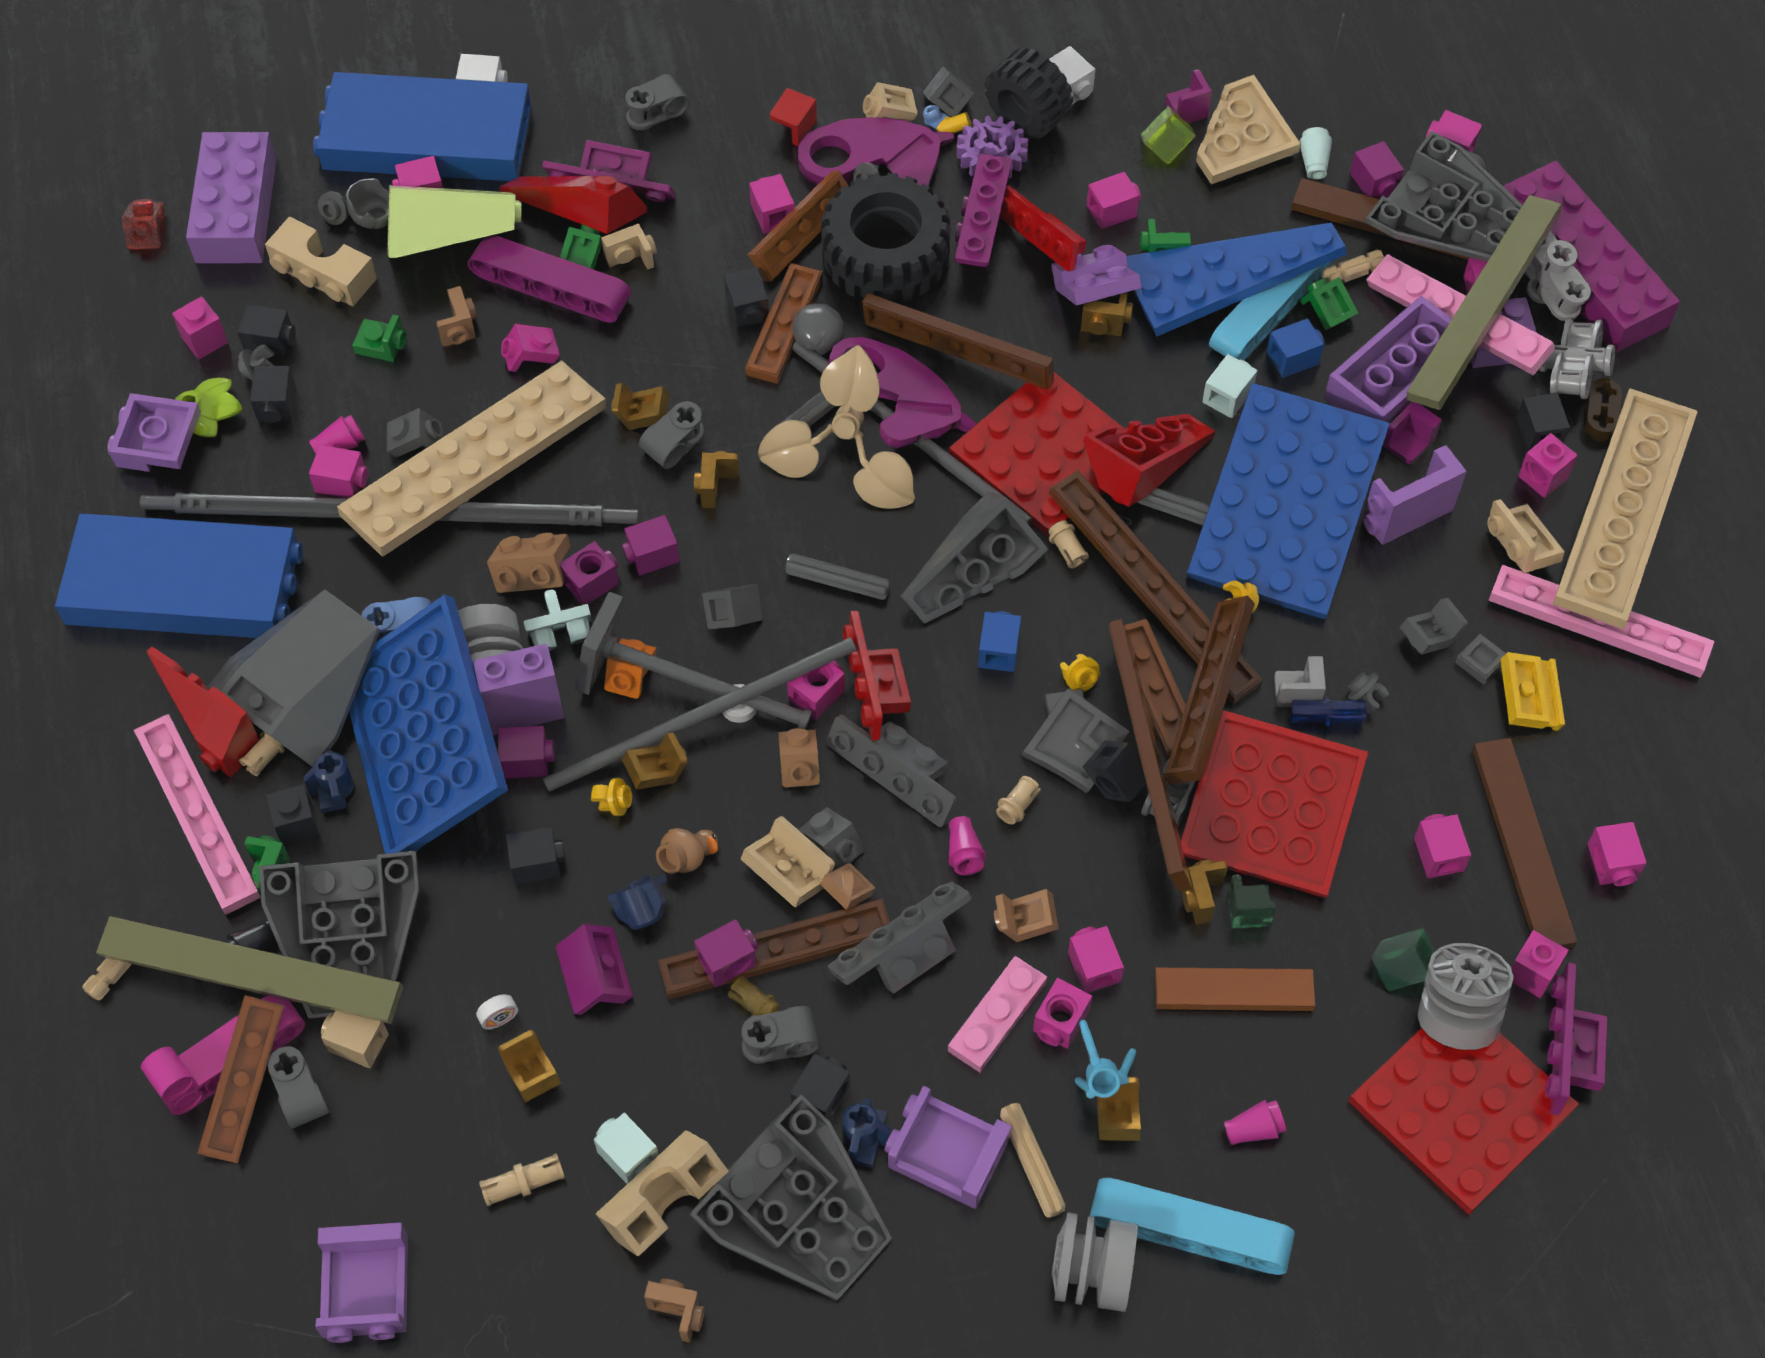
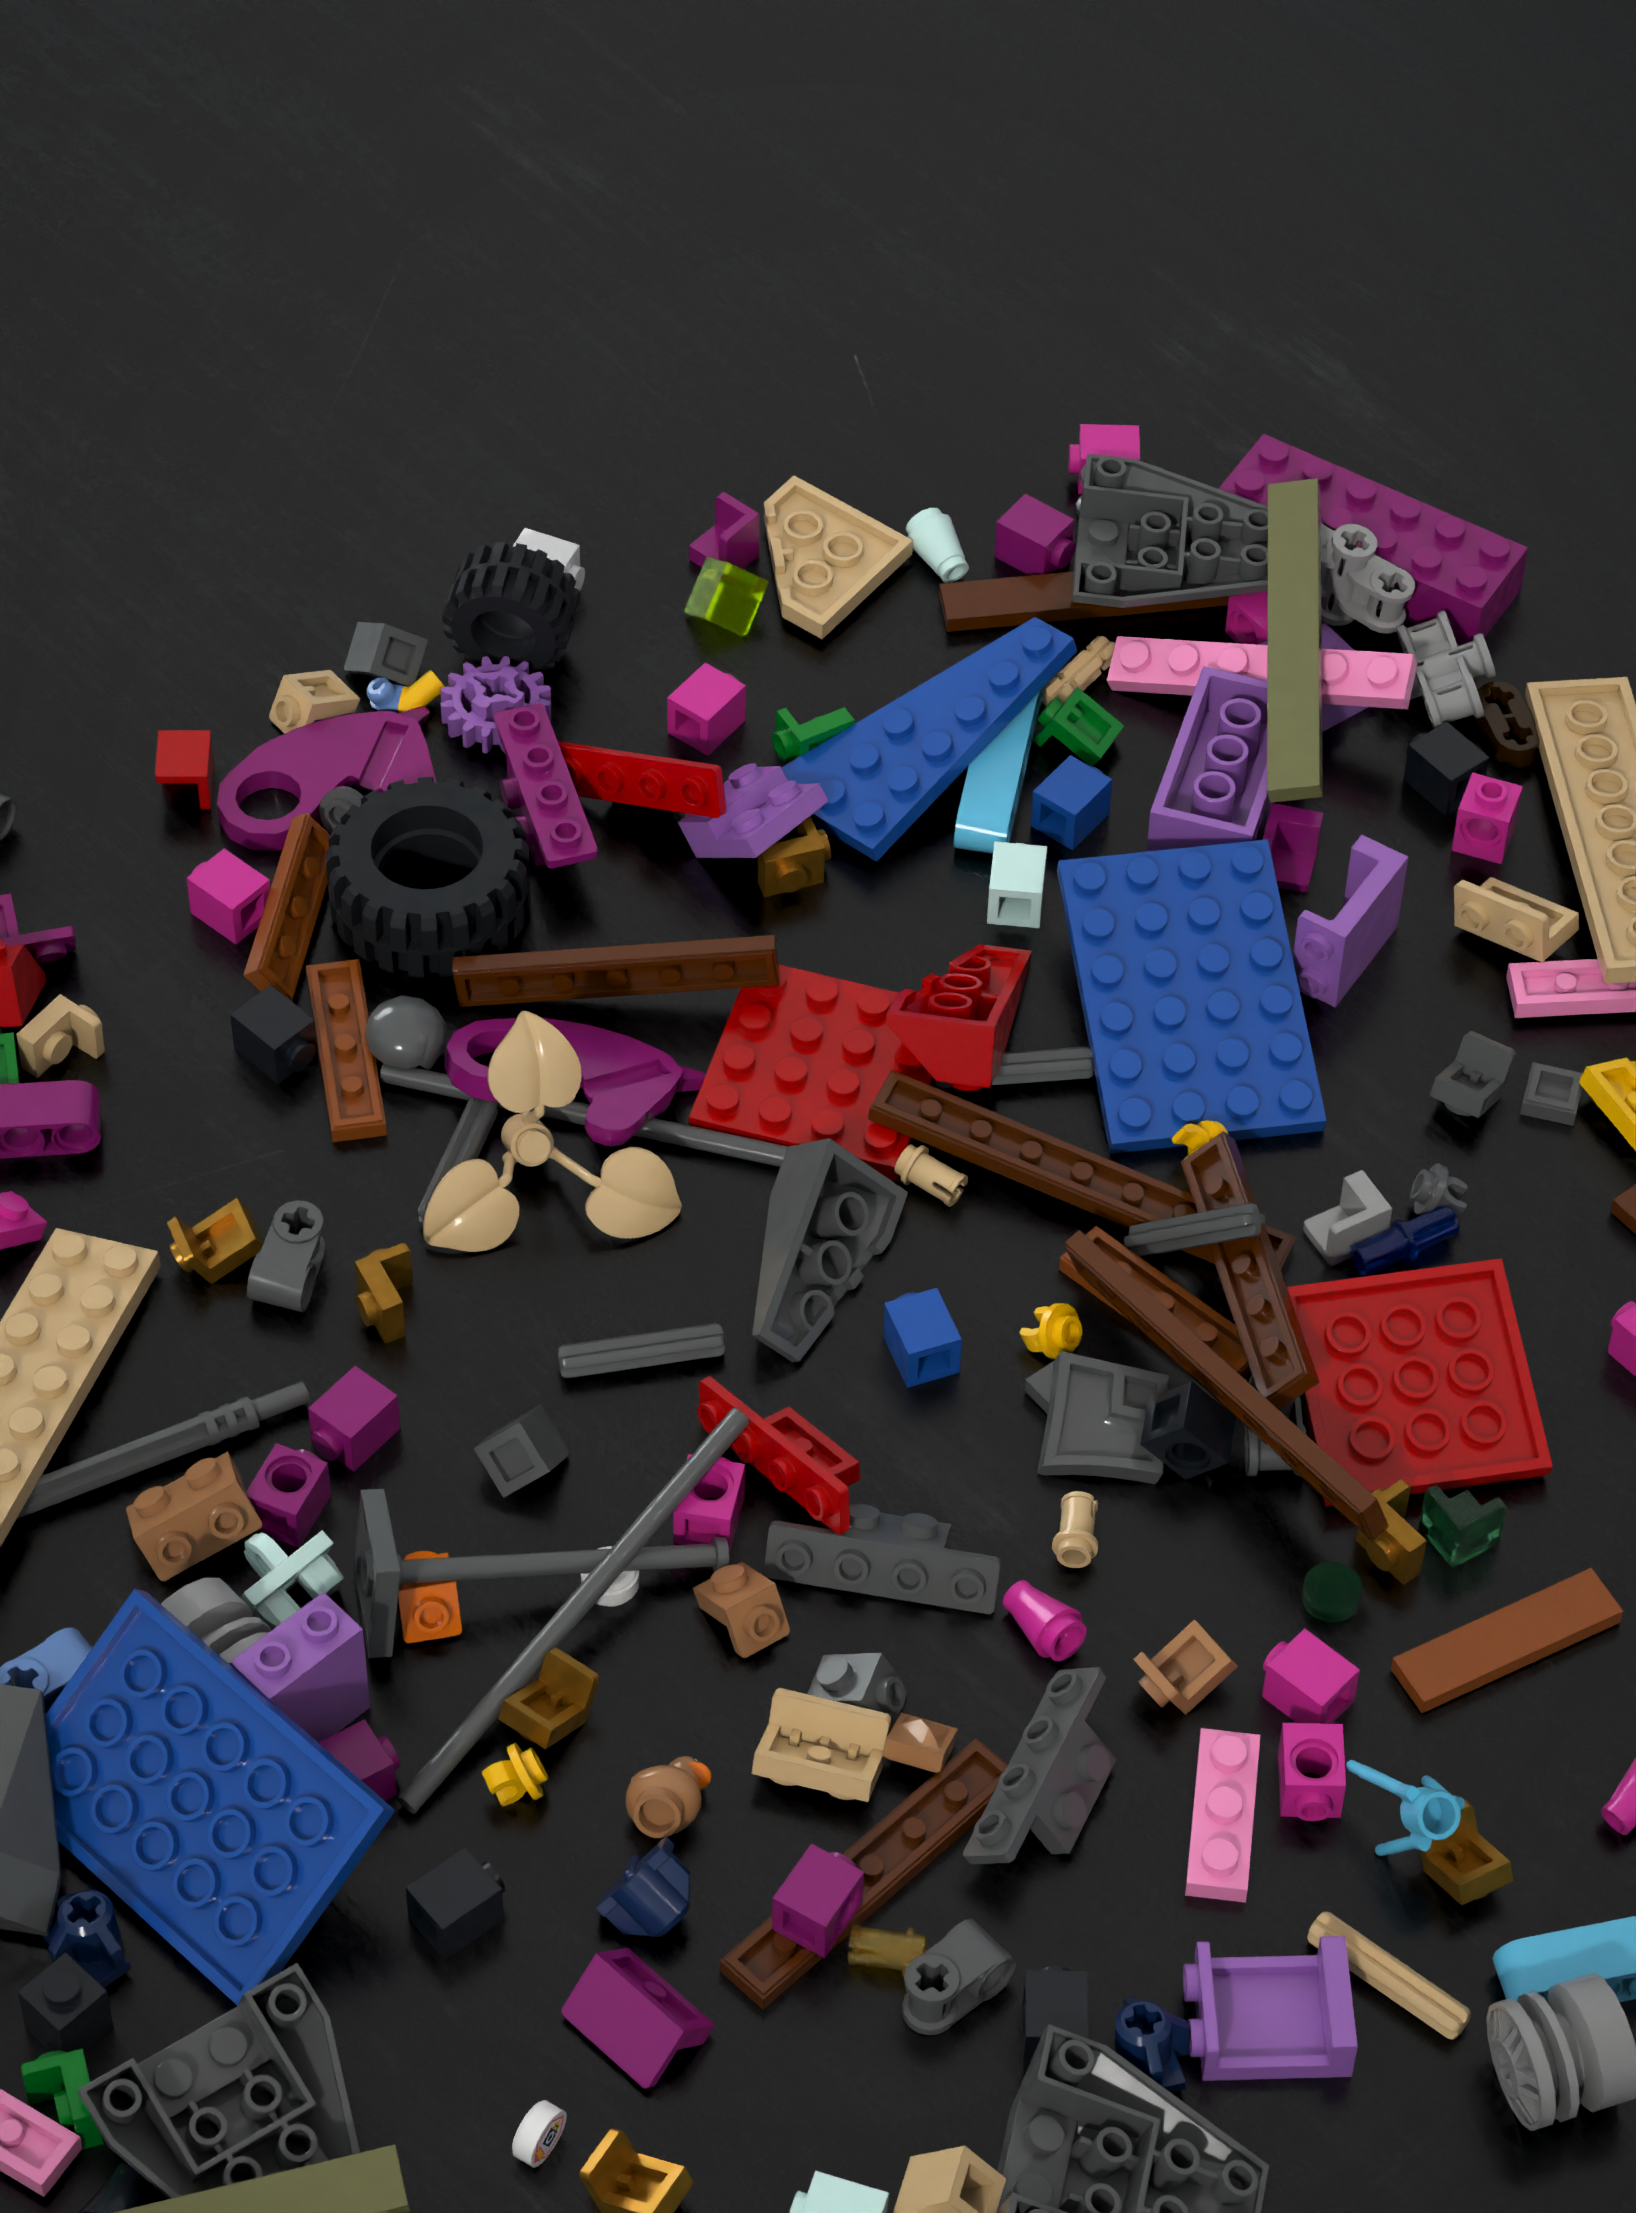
camera: 30 degrees left, 10 degrees down
(1147, 909) = (1331, 1592): none -> clear green tile
(1193, 649) = (1195, 1230): none -> dark grey axle

